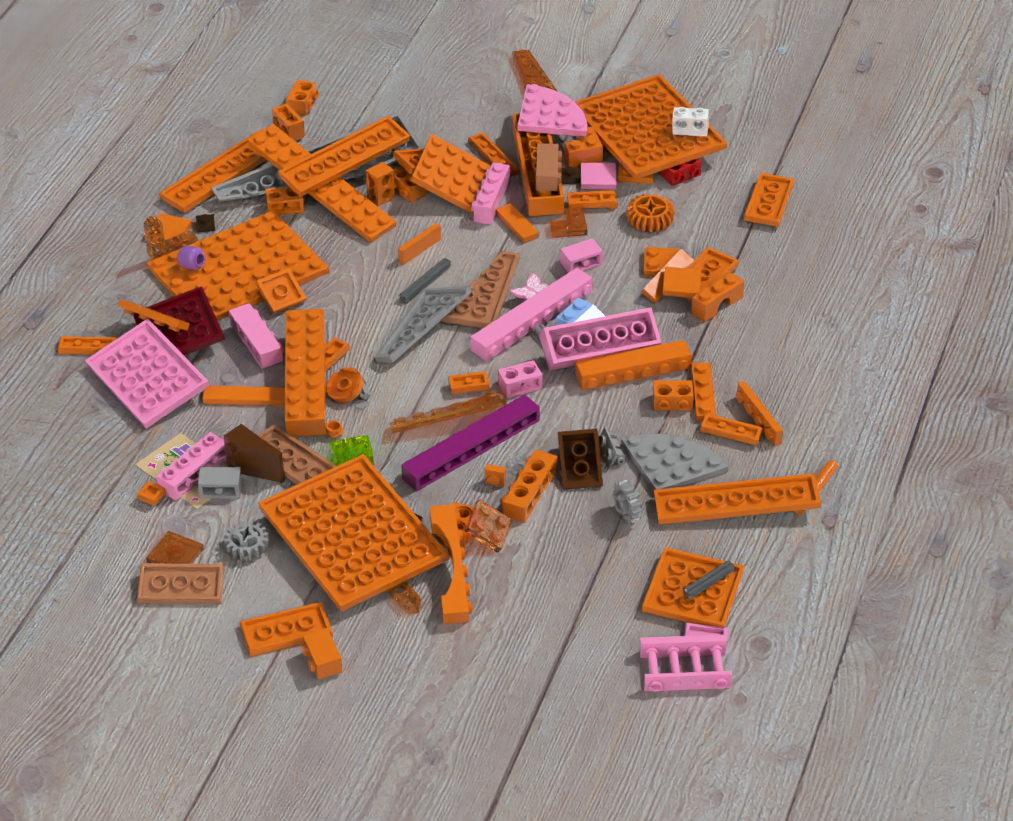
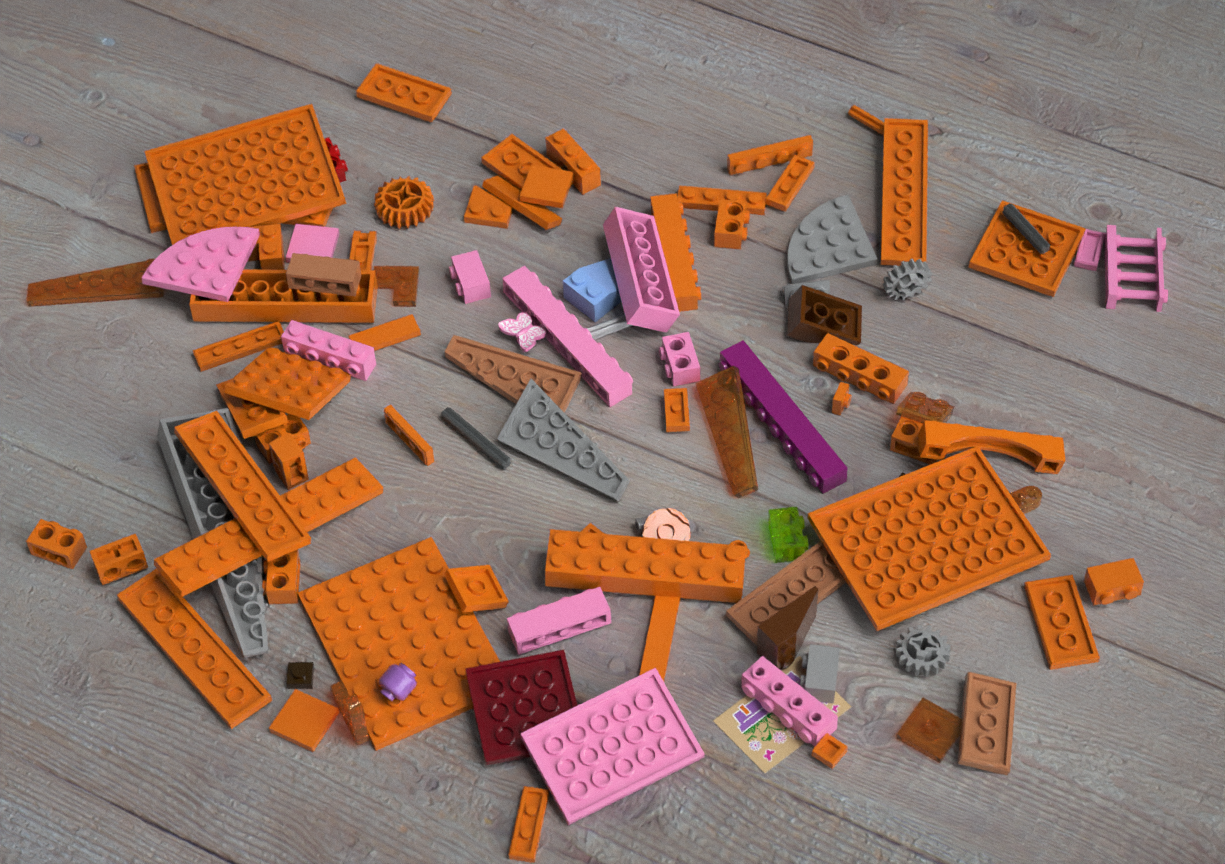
camera: 80 degrees left, 10 degrees up
(159, 318) = (517, 722): orange plate -> none
(690, 121) = (272, 126): white brick -> none

